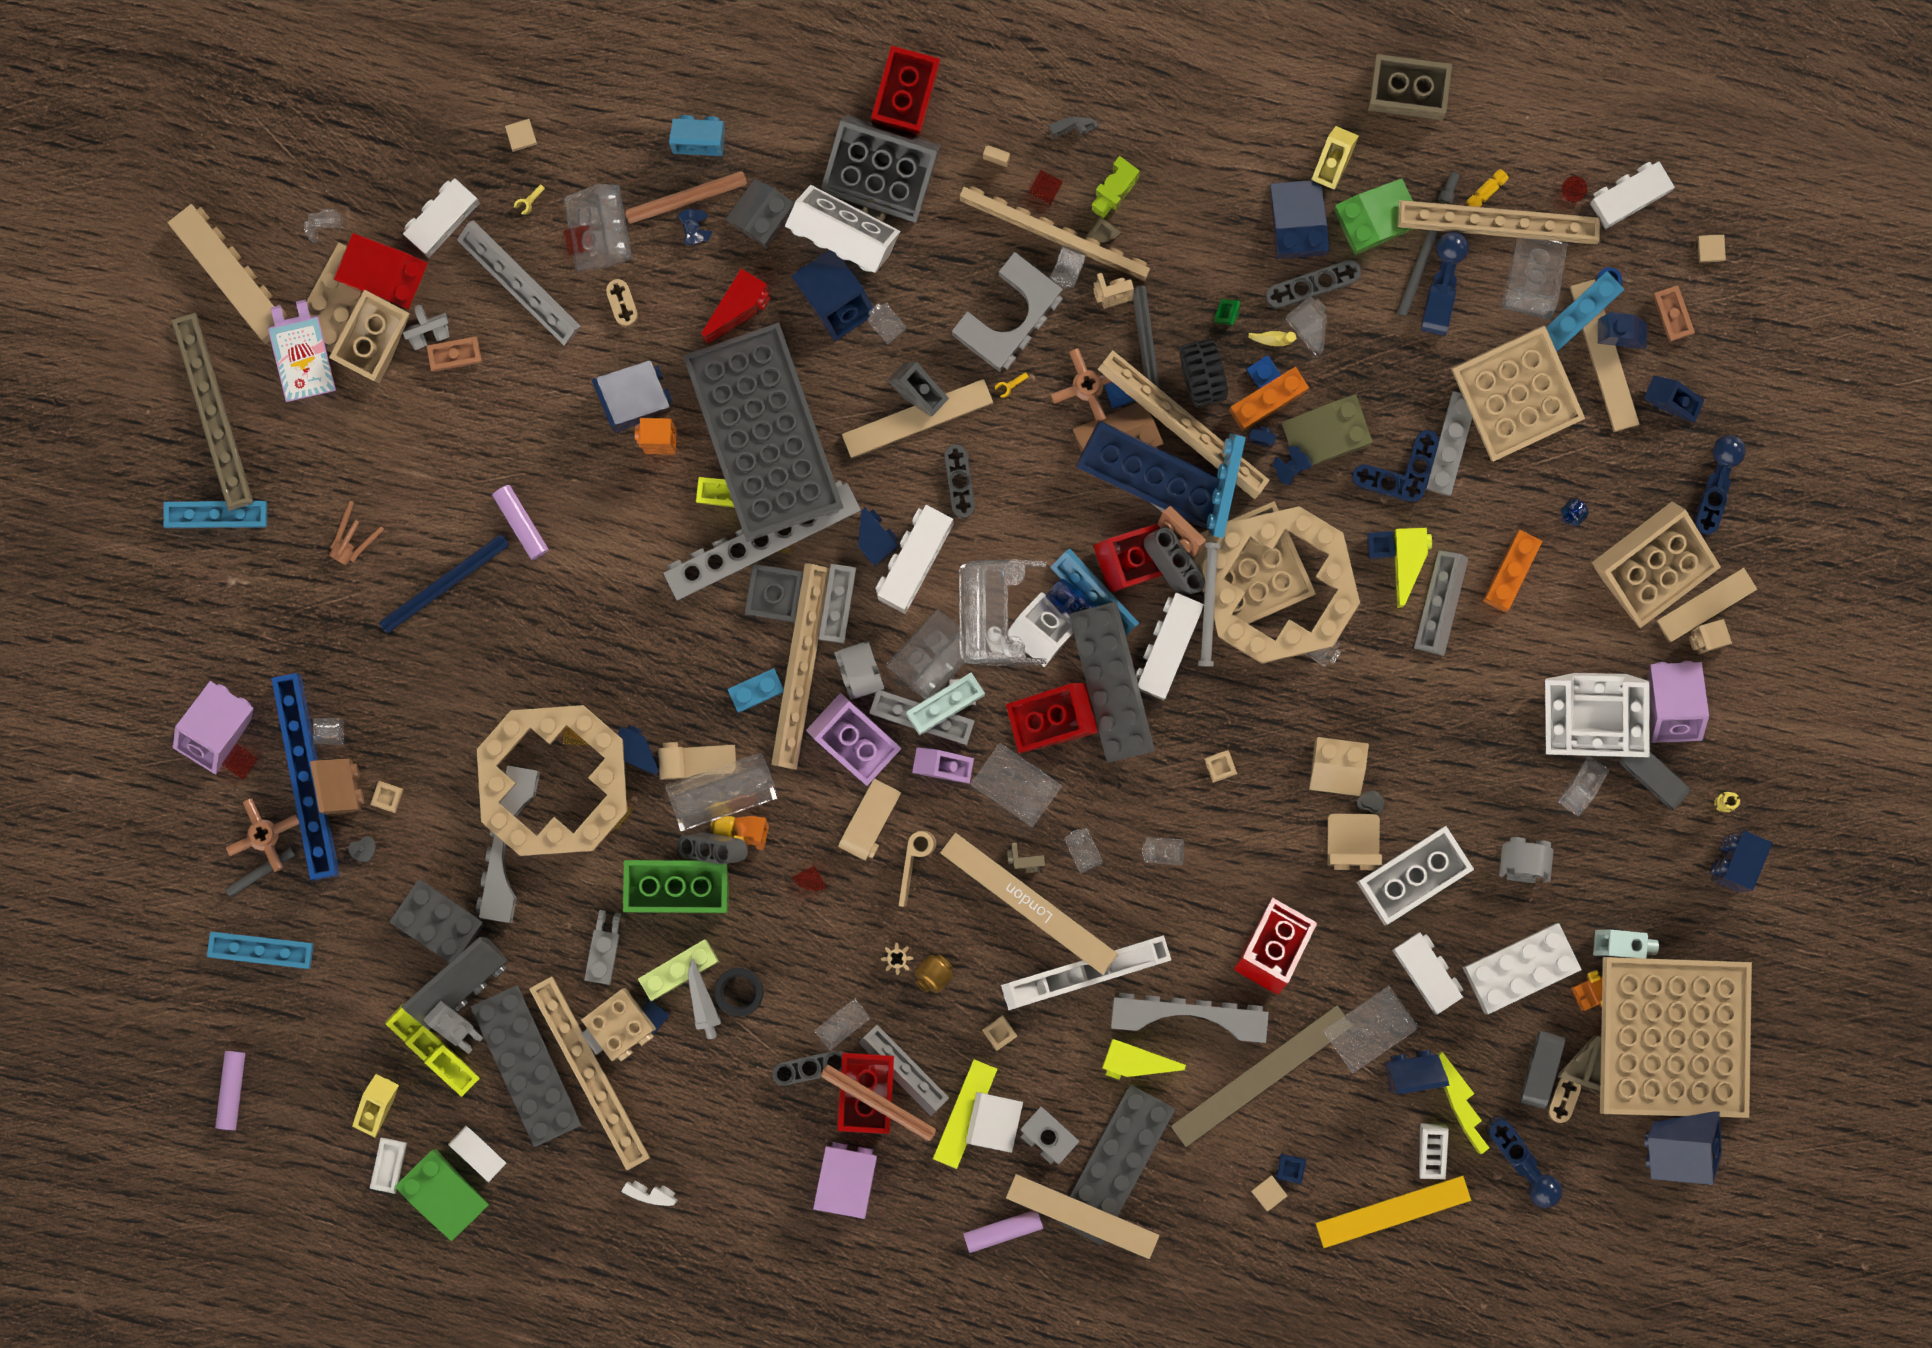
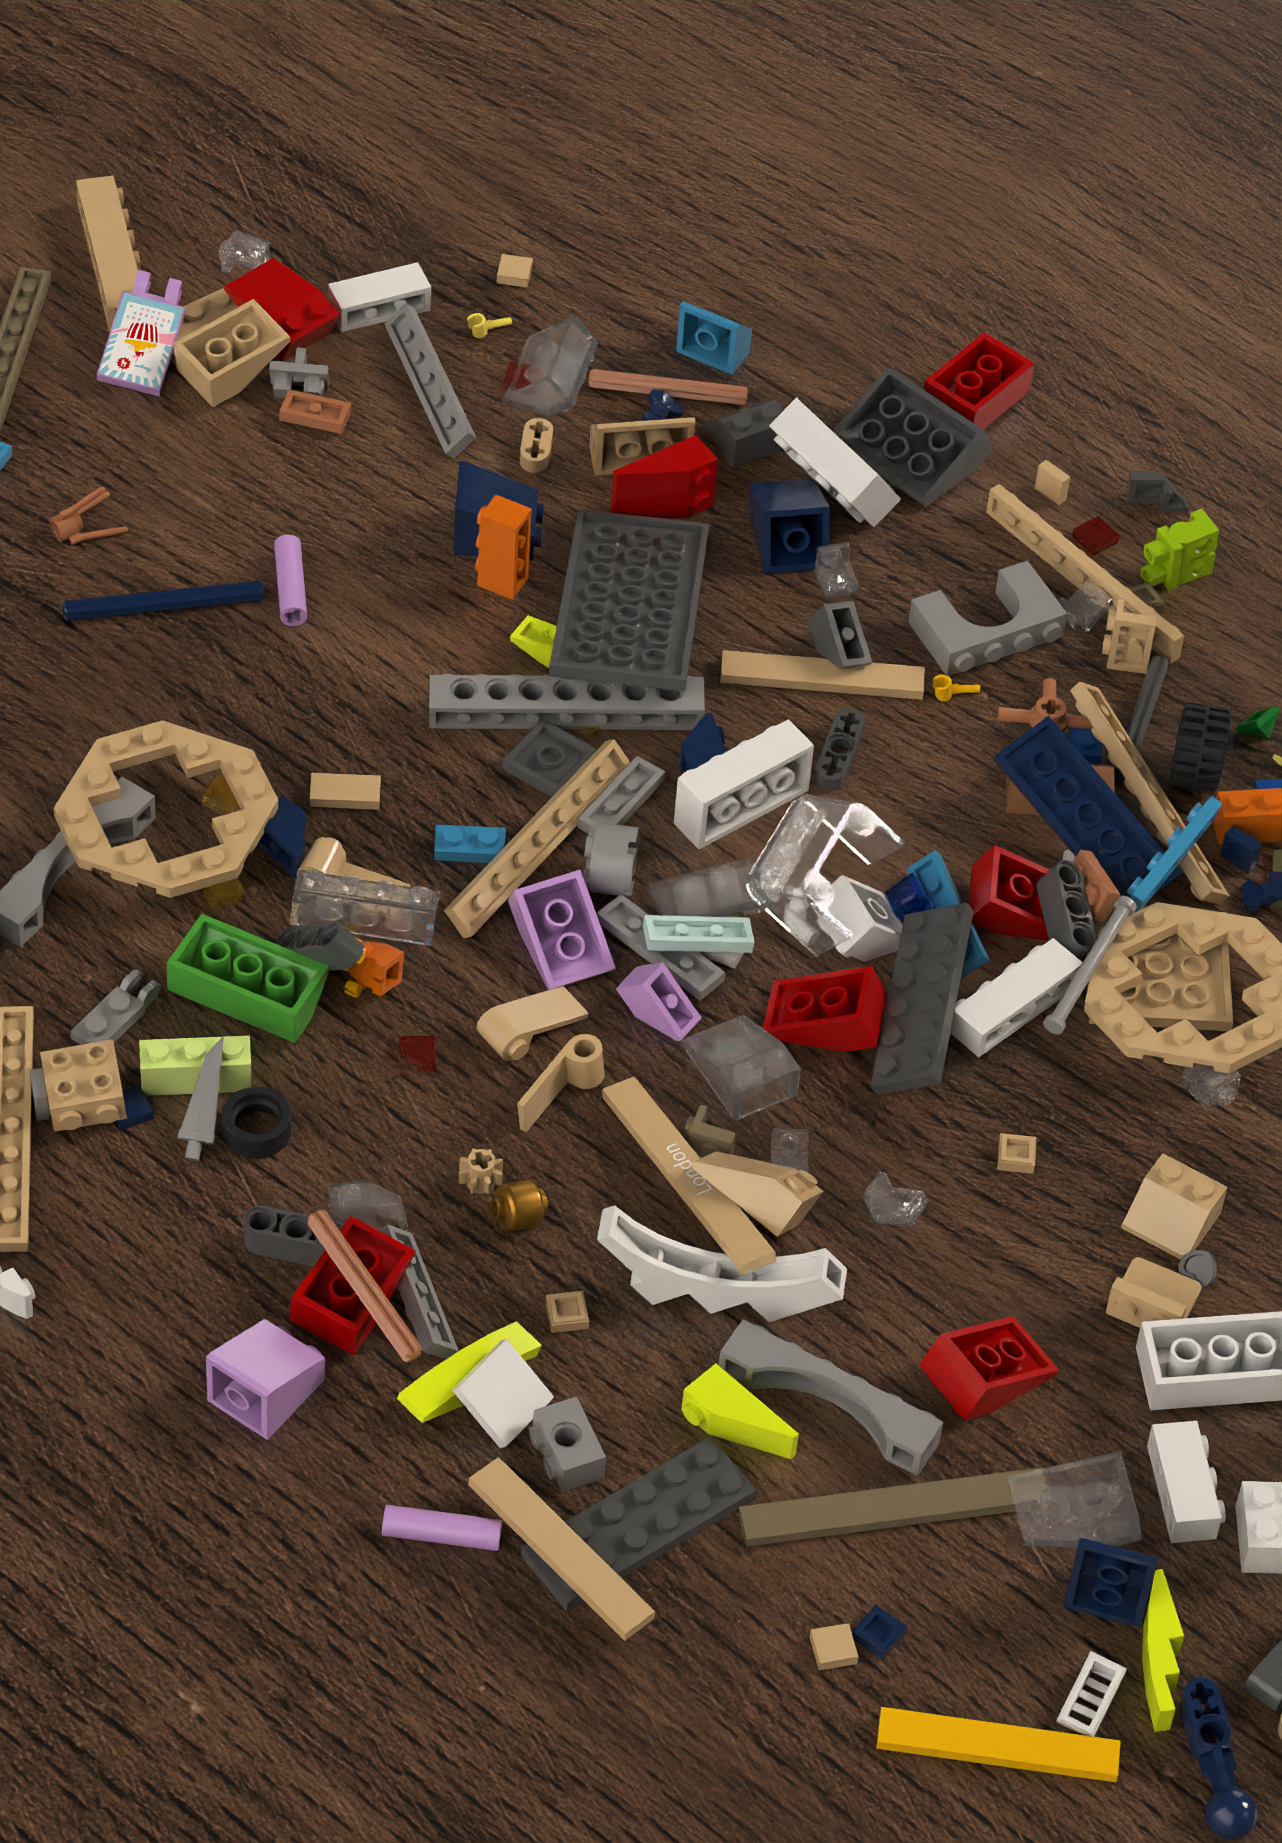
camera: 20 degrees right, 35 degrees down
(652, 688) = (345, 791): none -> tan tile
(696, 269) = (626, 442): none -> tan slope
(1078, 895) = (767, 1191): none -> tan slope

